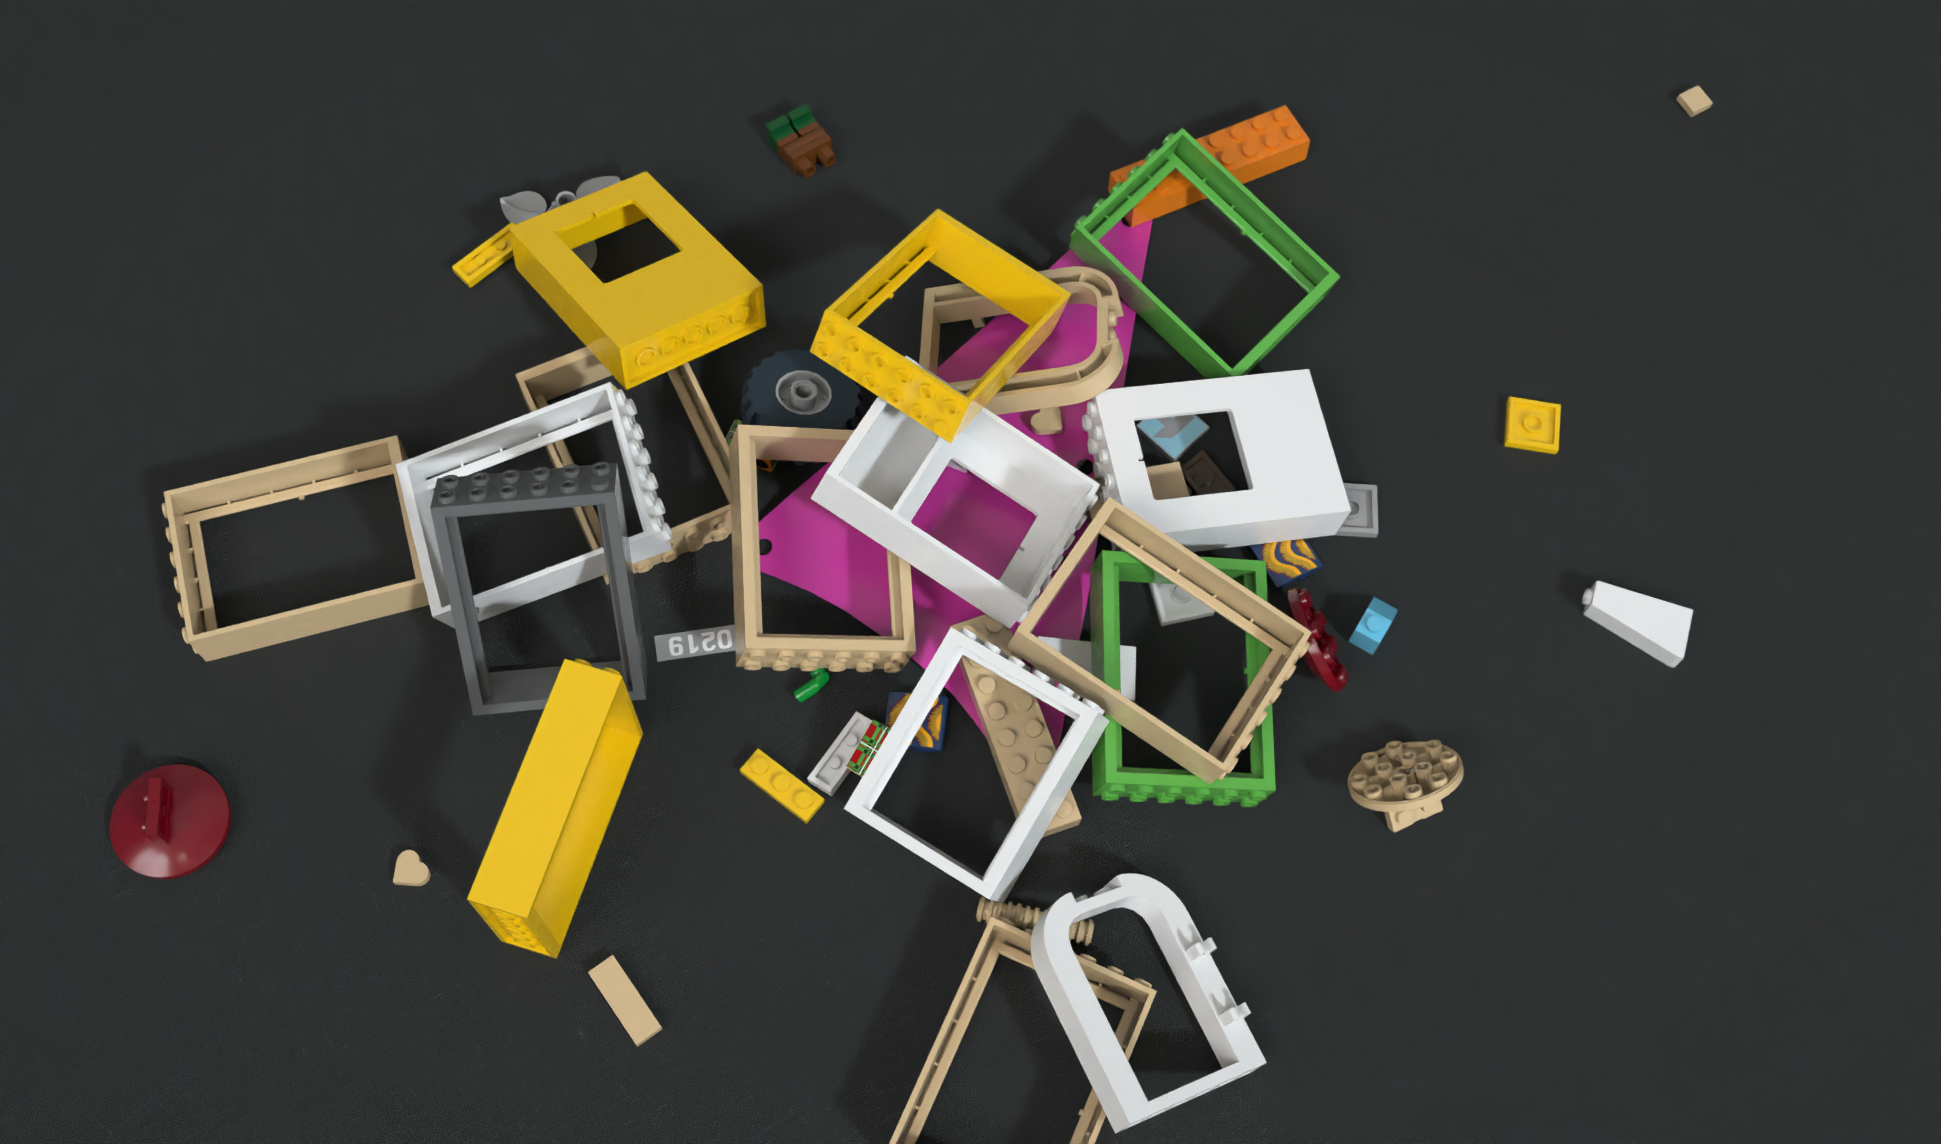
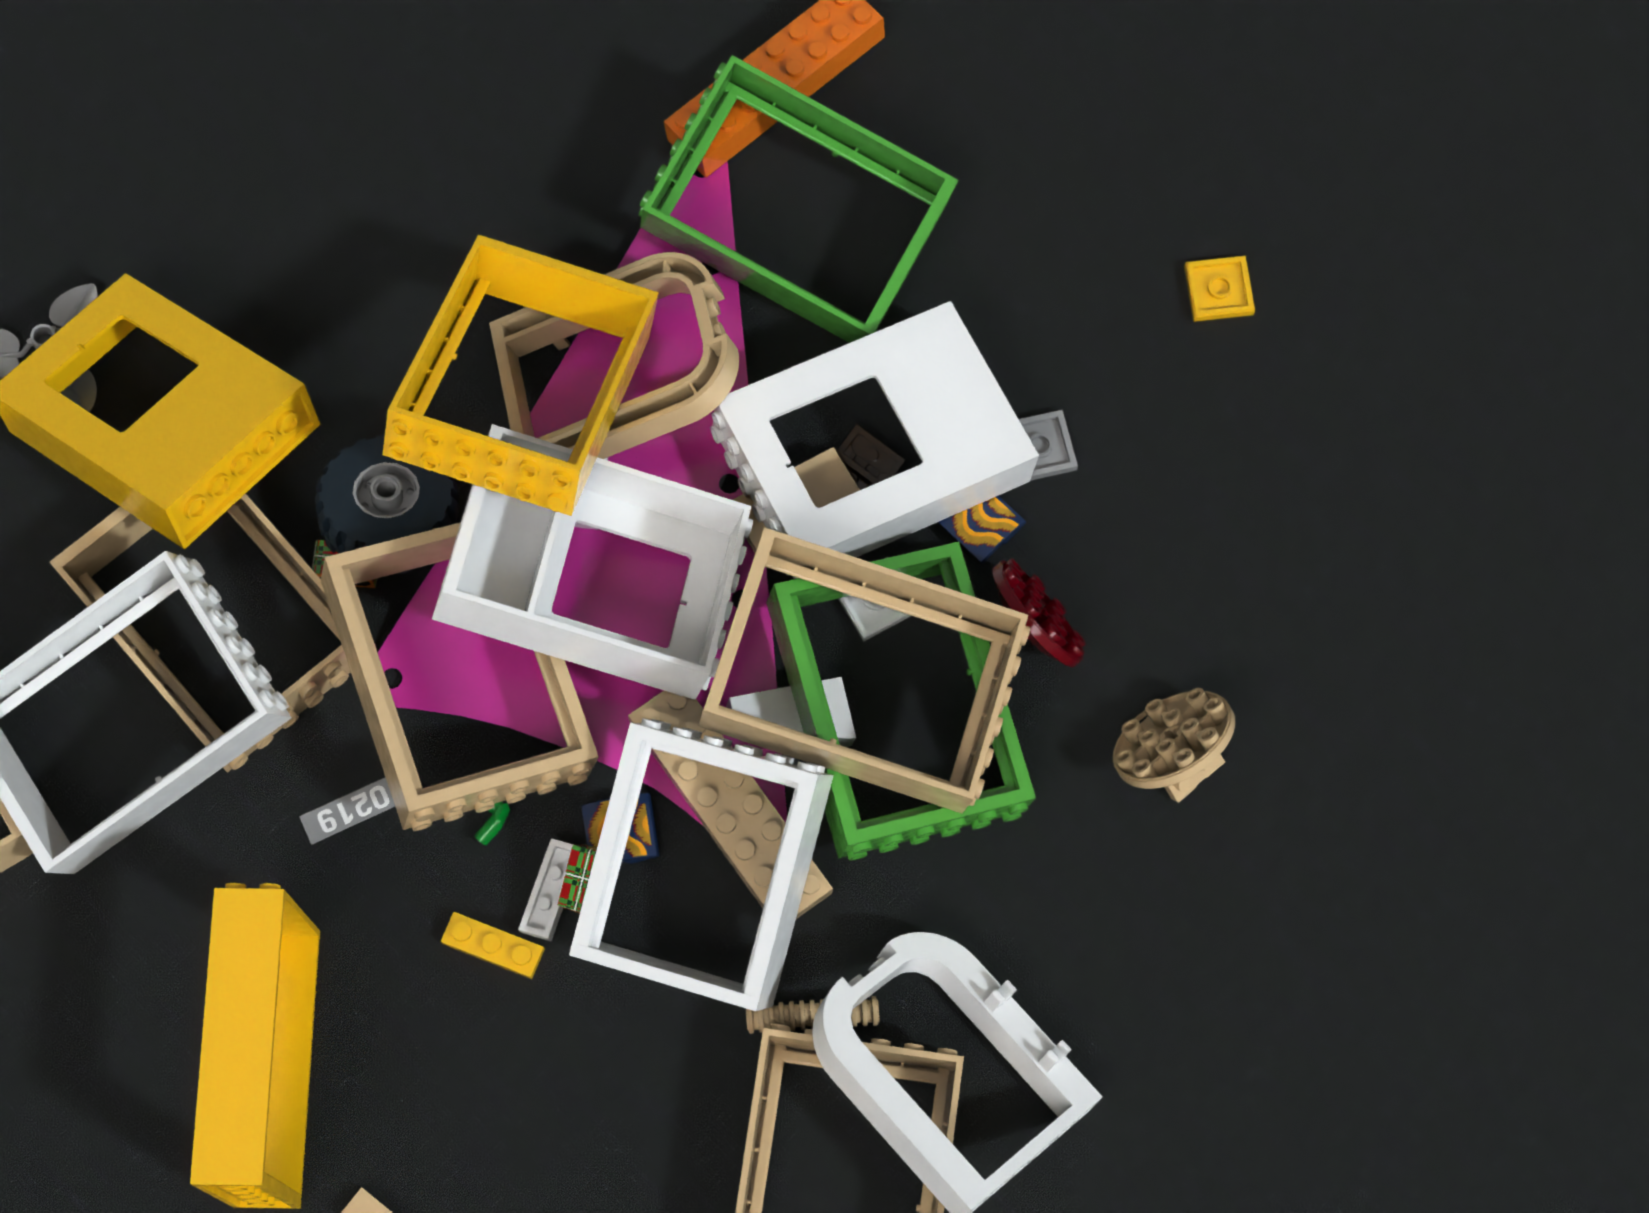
camera: 10 degrees left, 5 degrees up
(410, 870) = (108, 1159): tan tile -> none
(523, 492) = (118, 713): dark grey door -> none
(800, 141) = (293, 180): reddish brown hips -> none
(1047, 421) = (672, 445): tan tile -> none
(1173, 434) = (821, 418): tile -> none
(1373, 625) = (1098, 573): medium azure slope -> none
(1642, 620) = (1393, 484): white slope -> none

